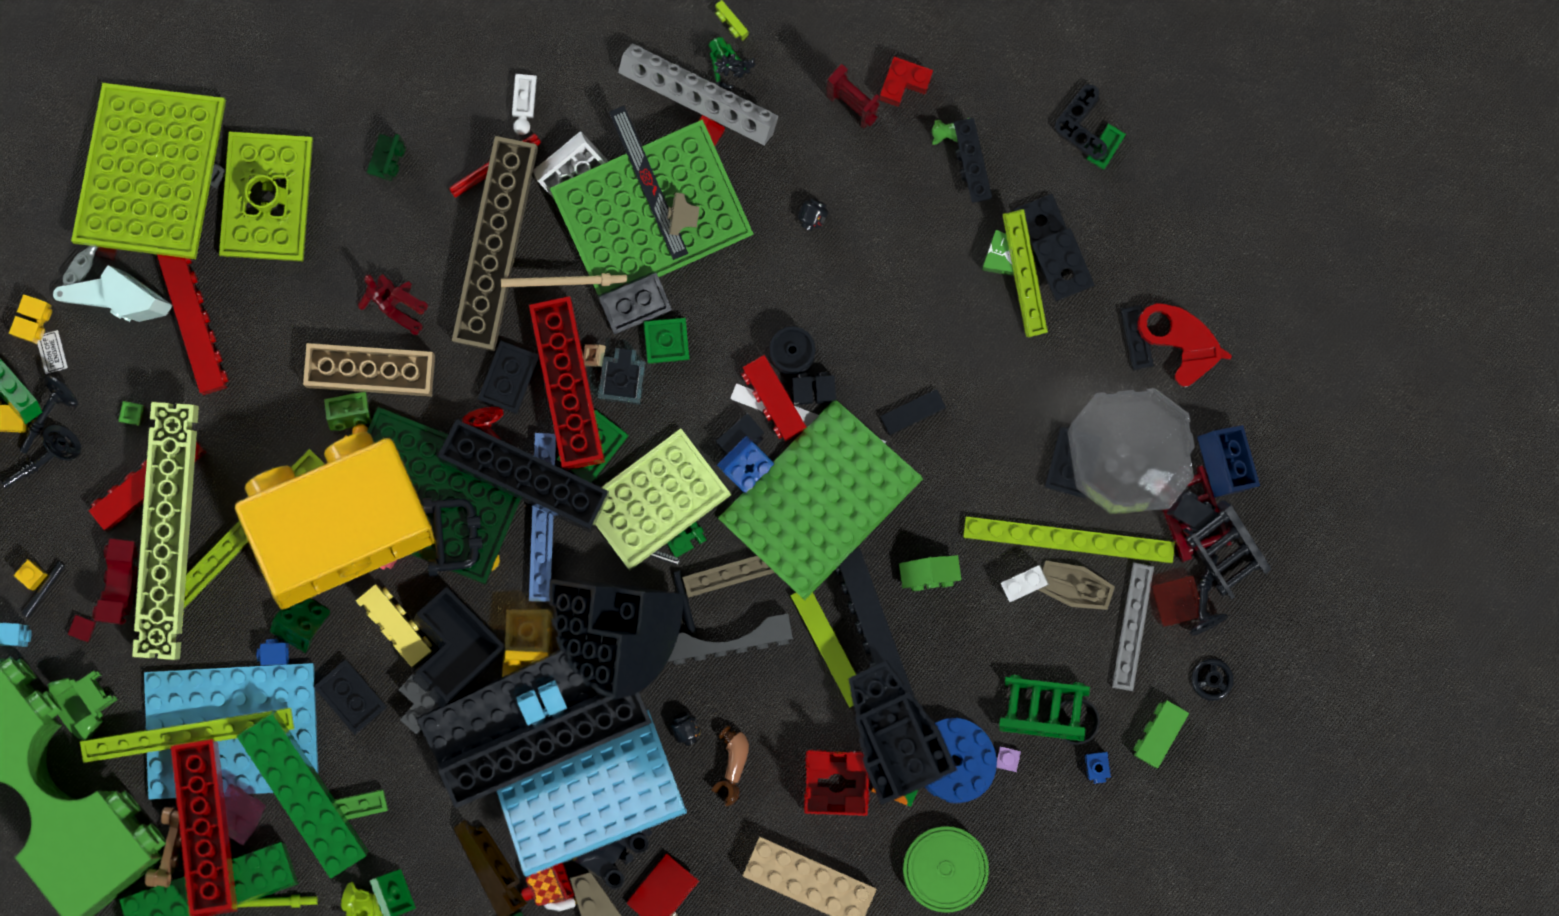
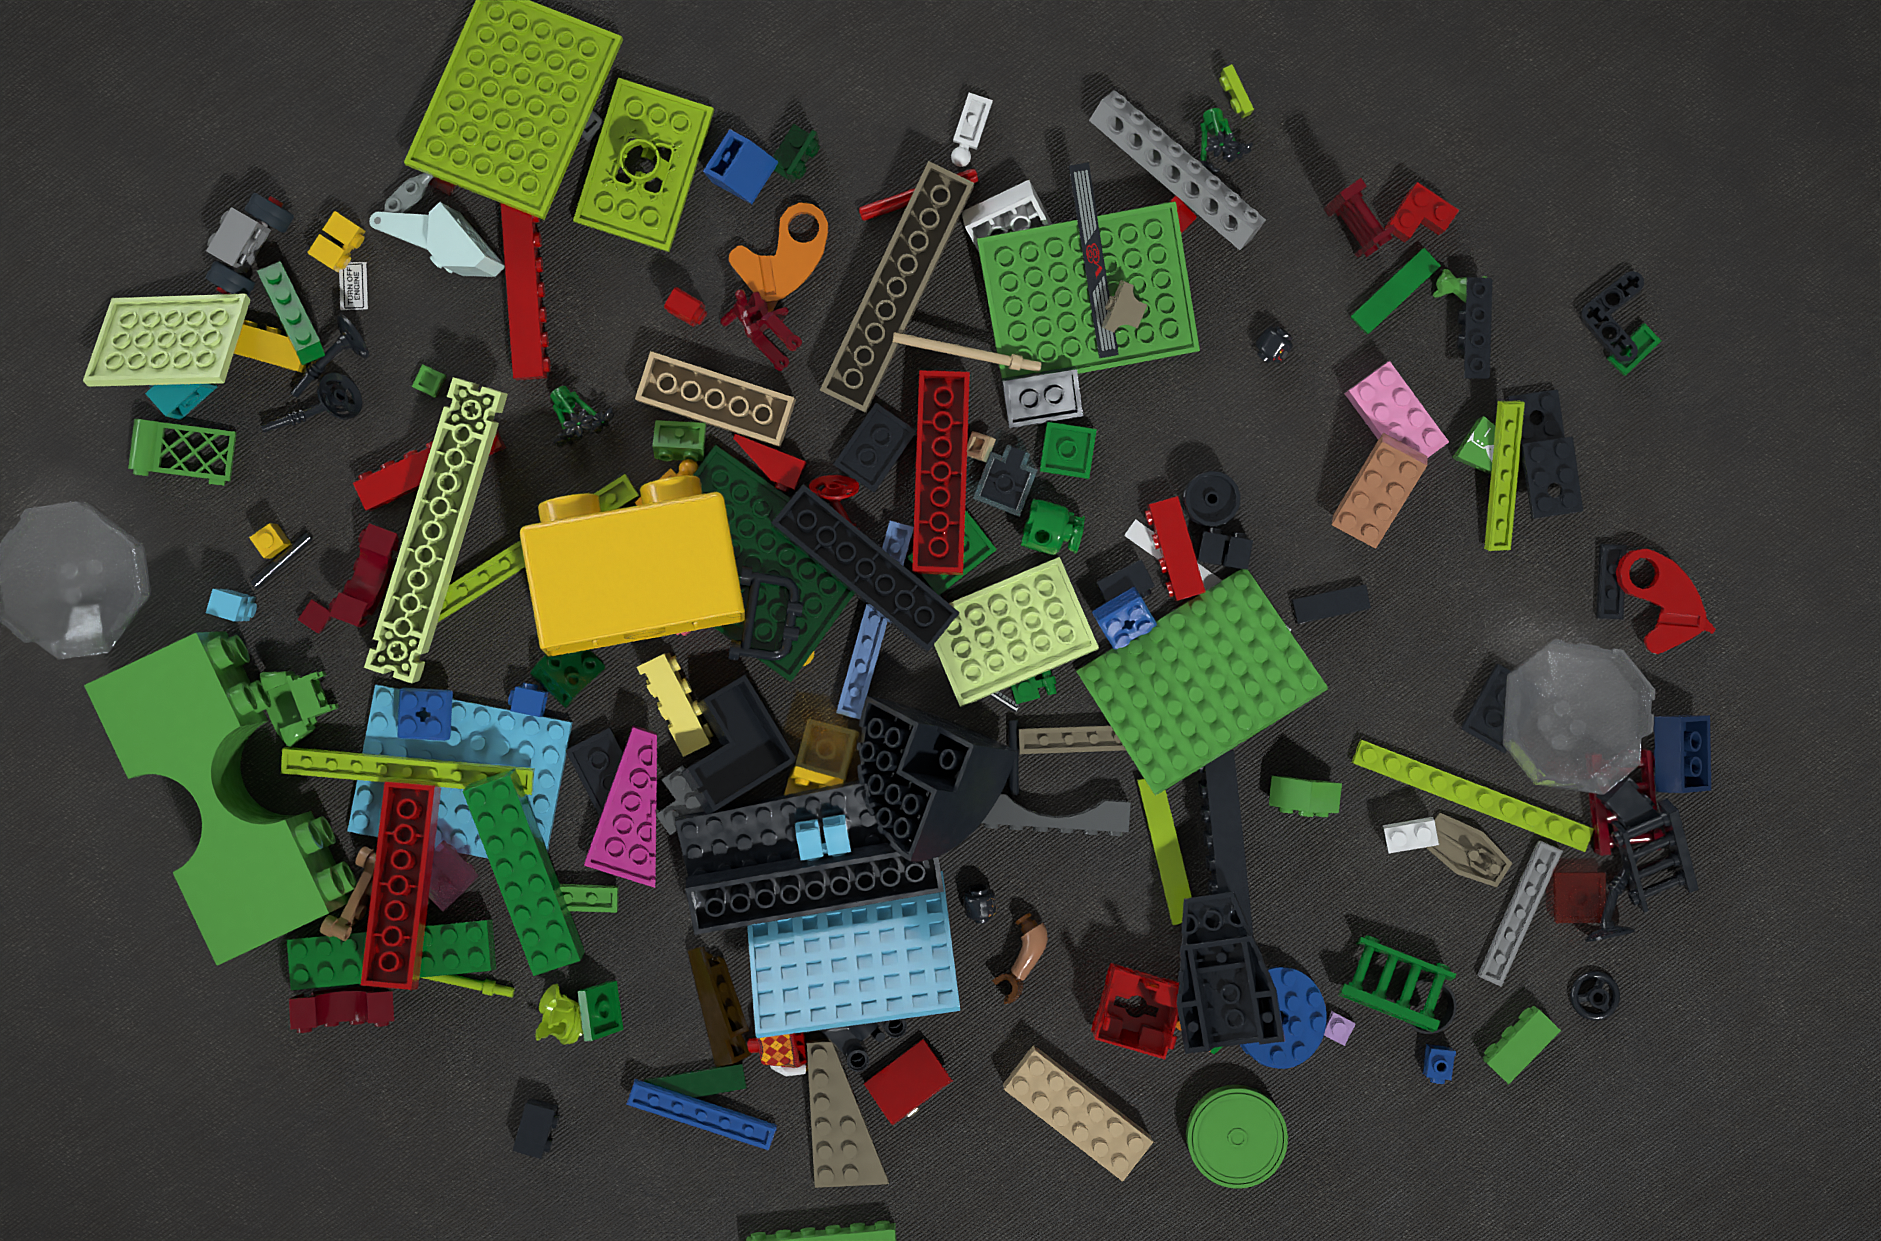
camera: 15 degrees right, 5 degrees up
(200, 694) = (436, 702): none -> blue brick
(247, 402) = (572, 430): none -> plant
(327, 301) = (685, 307): none -> red brick
(344, 178) = (740, 167): none -> blue slope
(379, 736) = (627, 827): none -> dark pink wing
(405, 243) = (790, 267): none -> orange animal
(433, 411) = (778, 466): none -> red slope
(666, 405) = (1051, 526): none -> green piece
(900, 147) = (1395, 291): none -> green tile
(926, 248) = (1393, 409): none -> bright pink brick
(926, 309) = (1379, 490): none -> nougat brick

